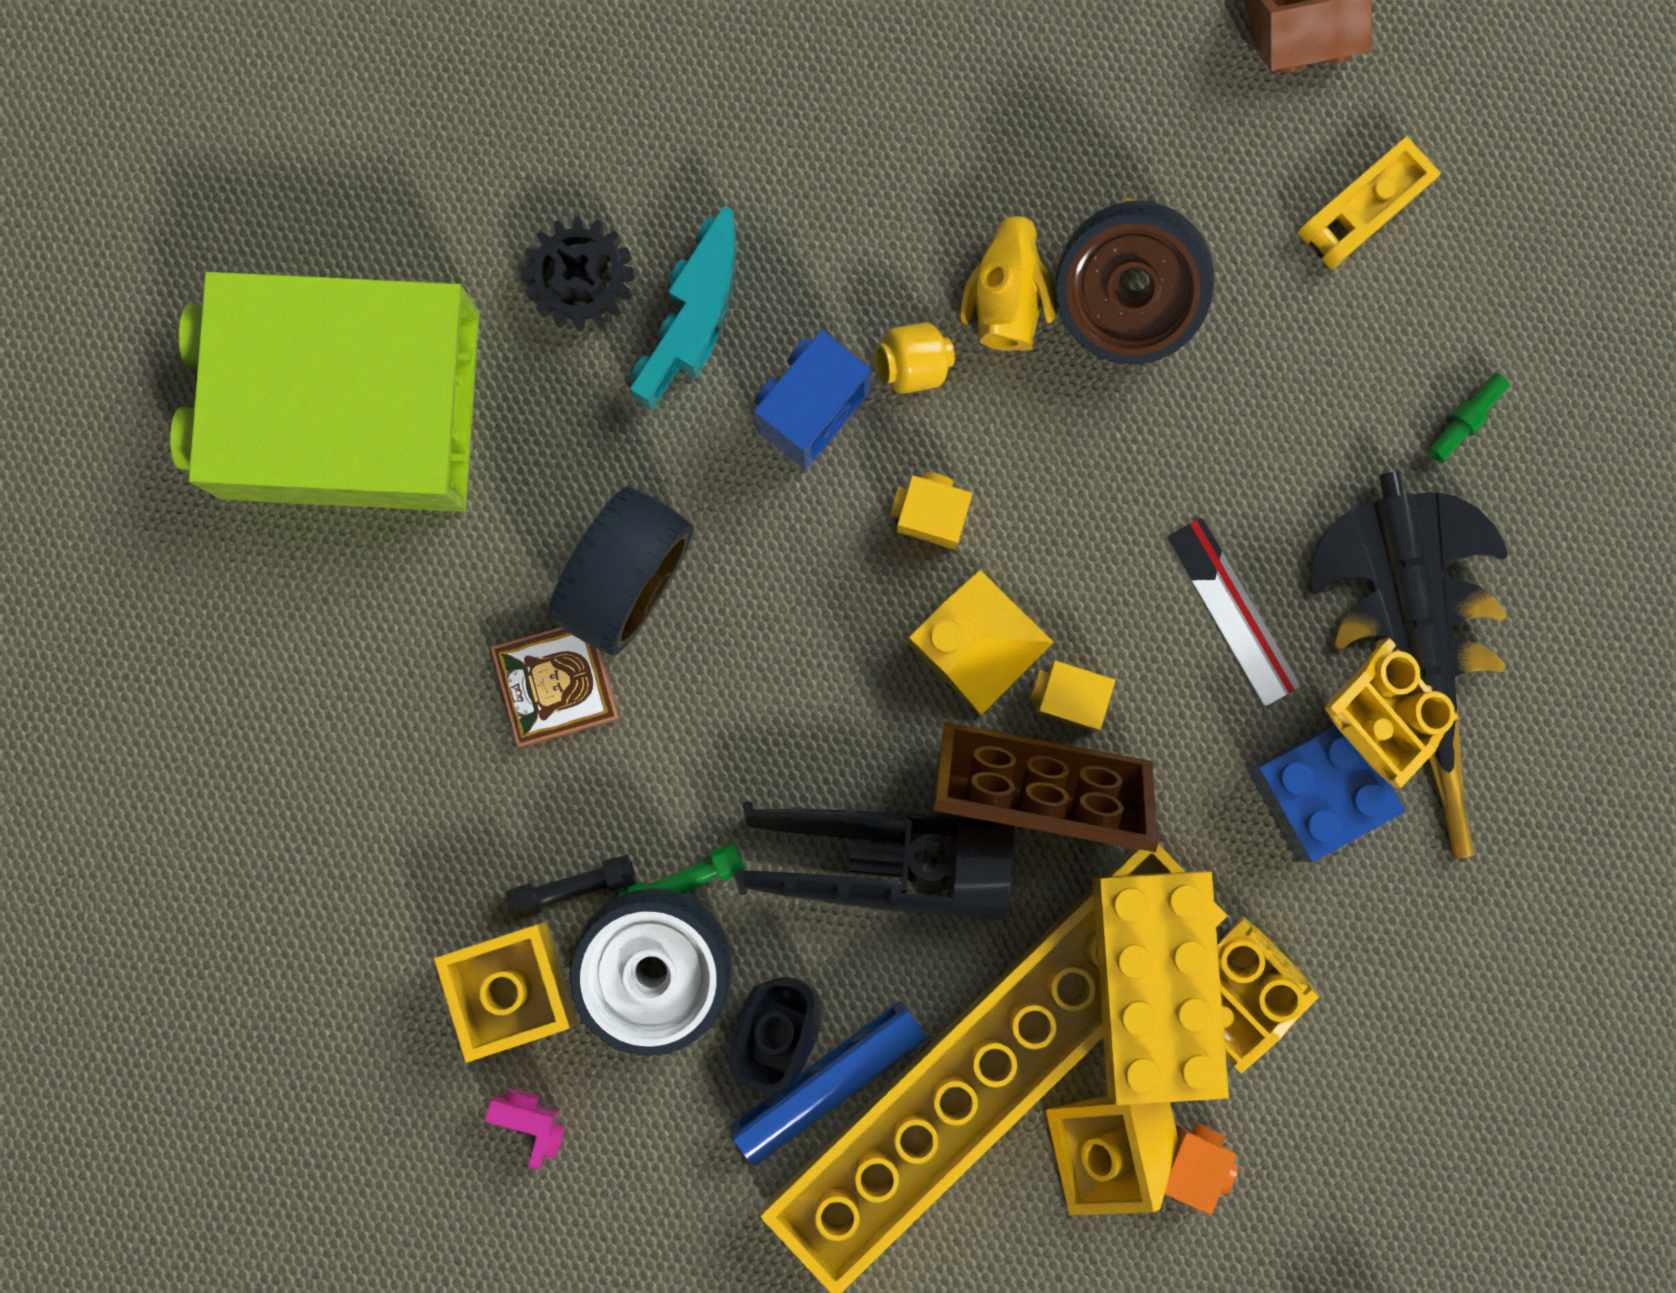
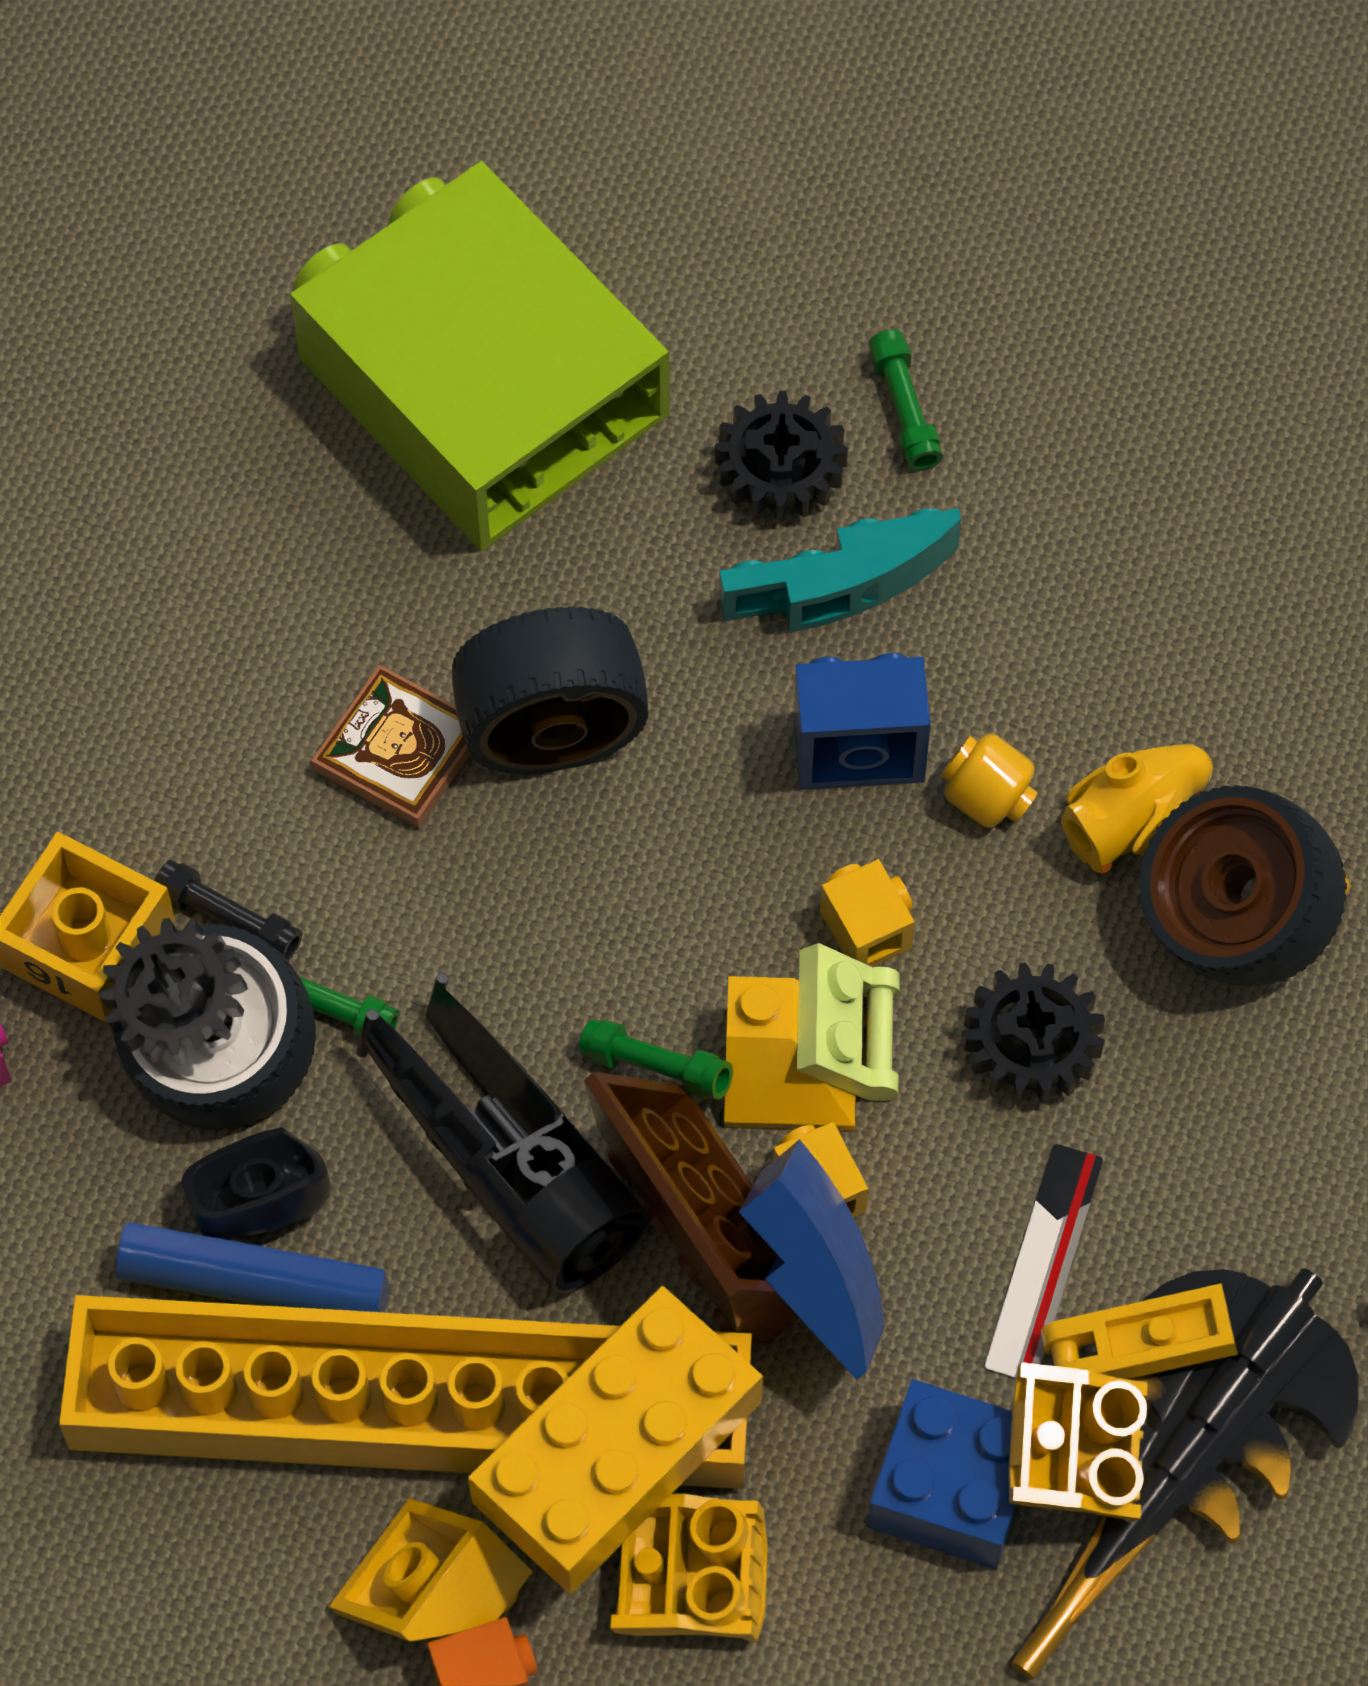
camera: 45 degrees right, 20 degrees down
(571, 144) = (918, 440): none -> green bar
(642, 998) = (149, 999): none -> black gear
(872, 739) = (702, 1074): none -> green bar
(988, 599) = (832, 1022): none -> yellowish green plate
(1081, 474) = (1058, 1019): none -> black gear
(1140, 755) = (820, 1256): none -> blue slope
(1344, 607) = (1145, 1335): none -> yellow plate

